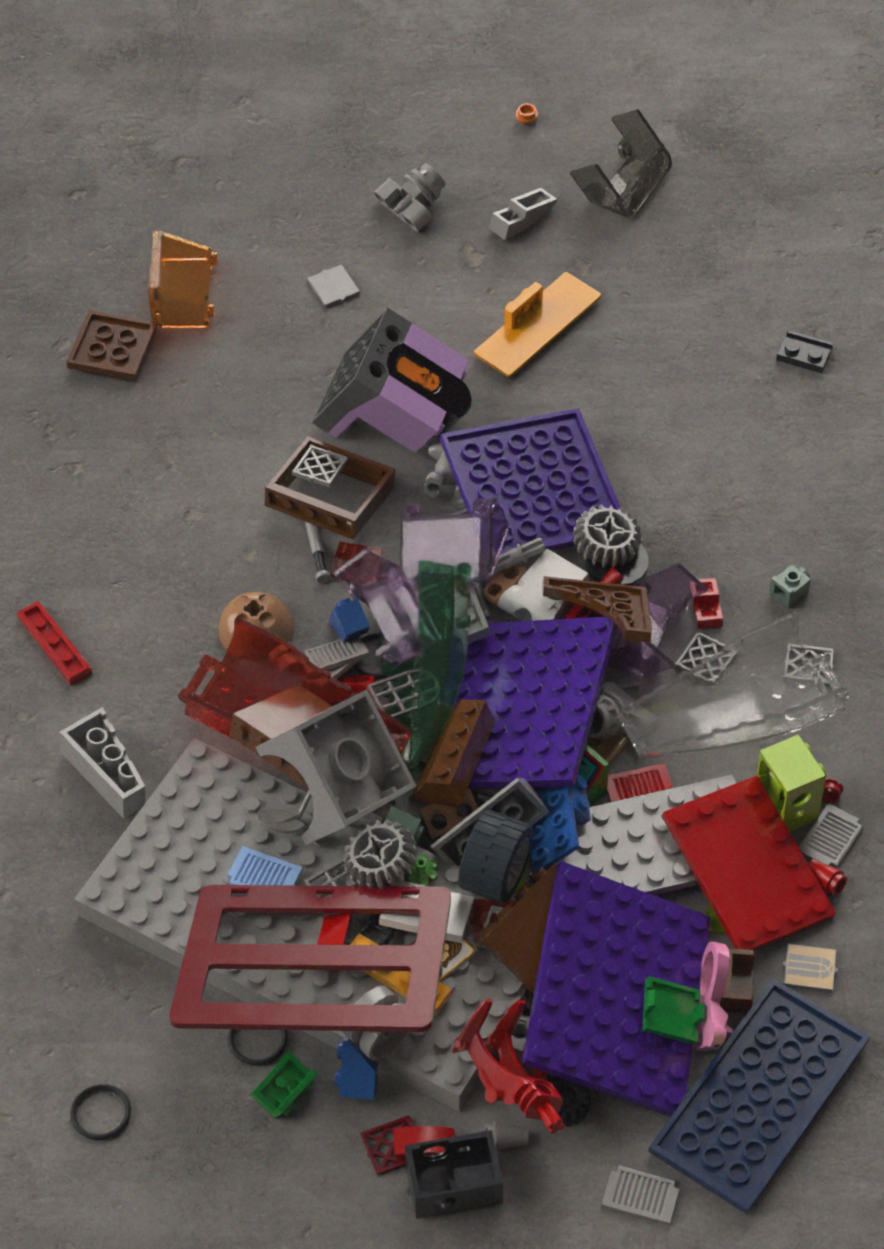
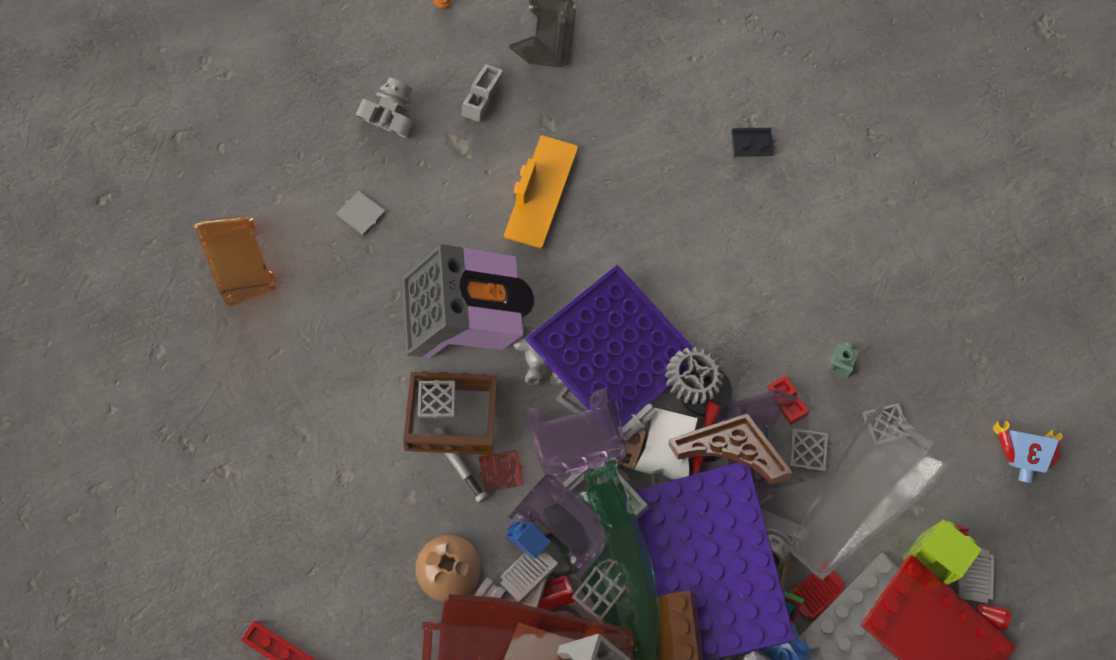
camera: 30 degrees left, 15 degrees up
(112, 345) = (202, 340): reddish brown plate -> none

